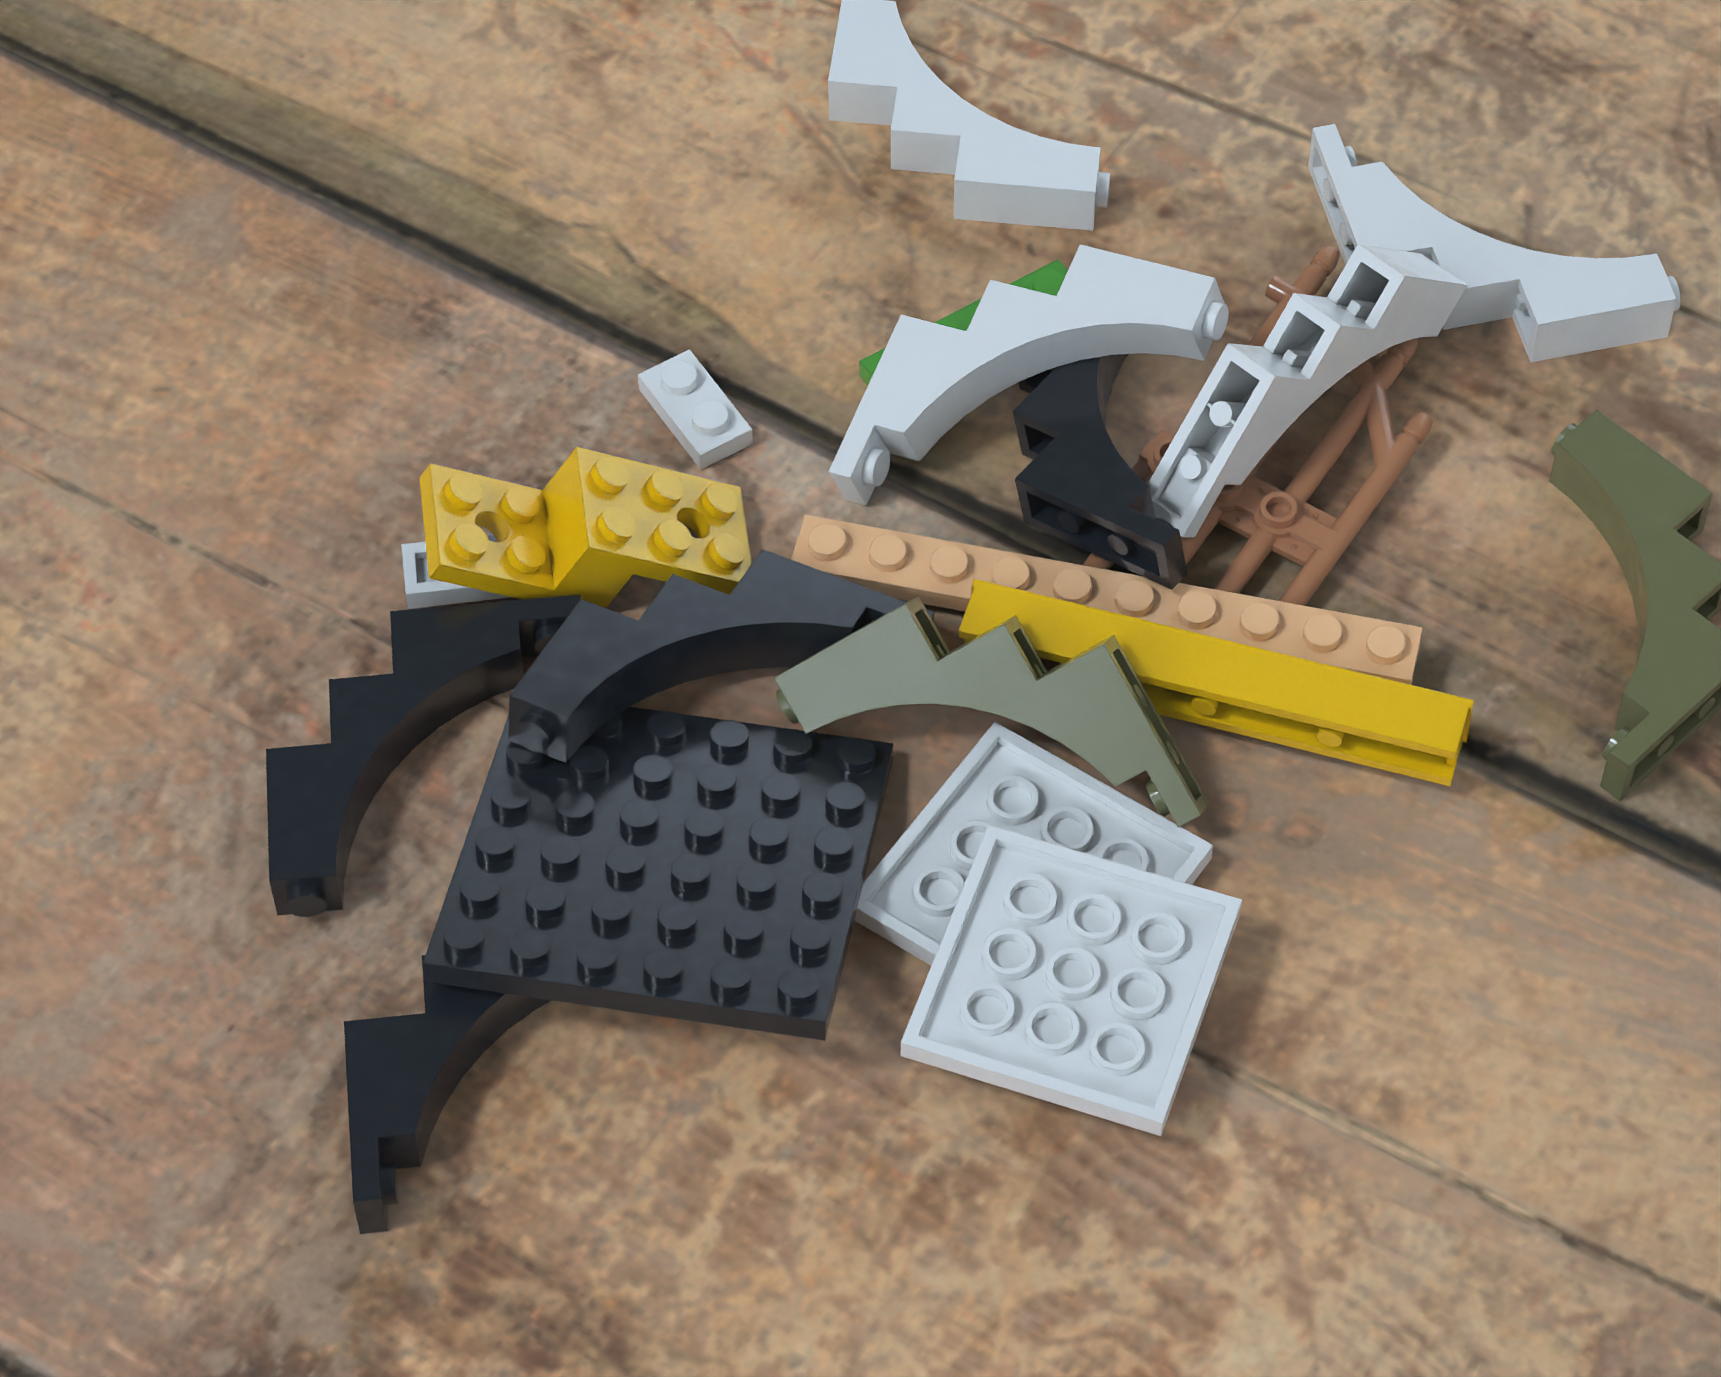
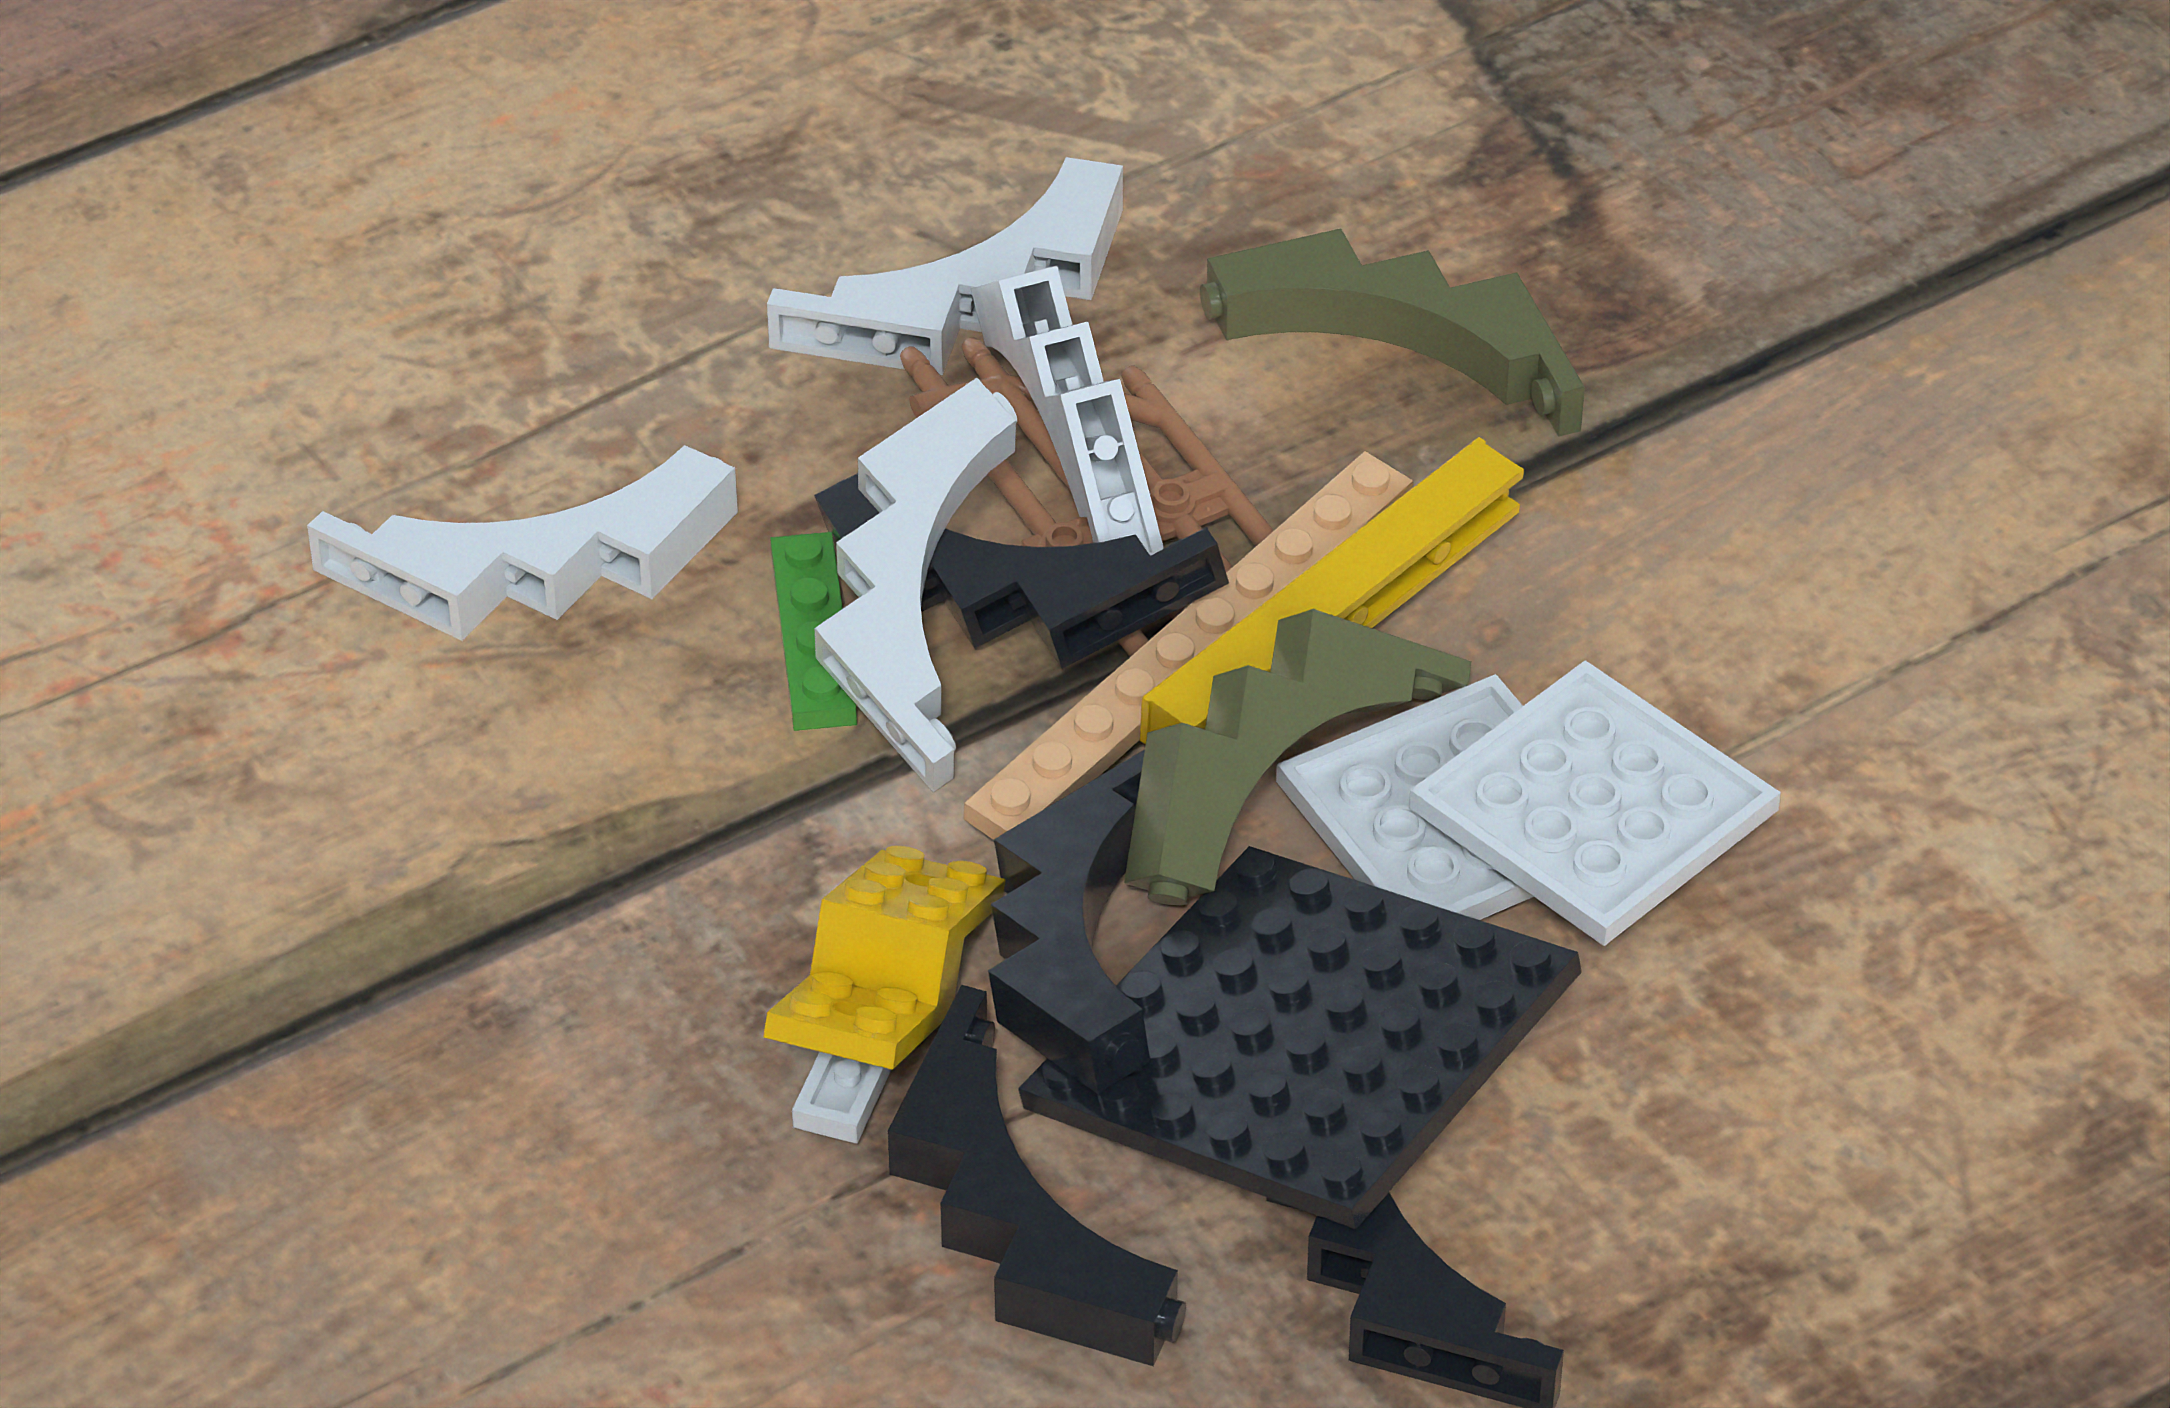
camera: 65 degrees left, 10 degrees down
(695, 409) = (759, 853): white plate -> none

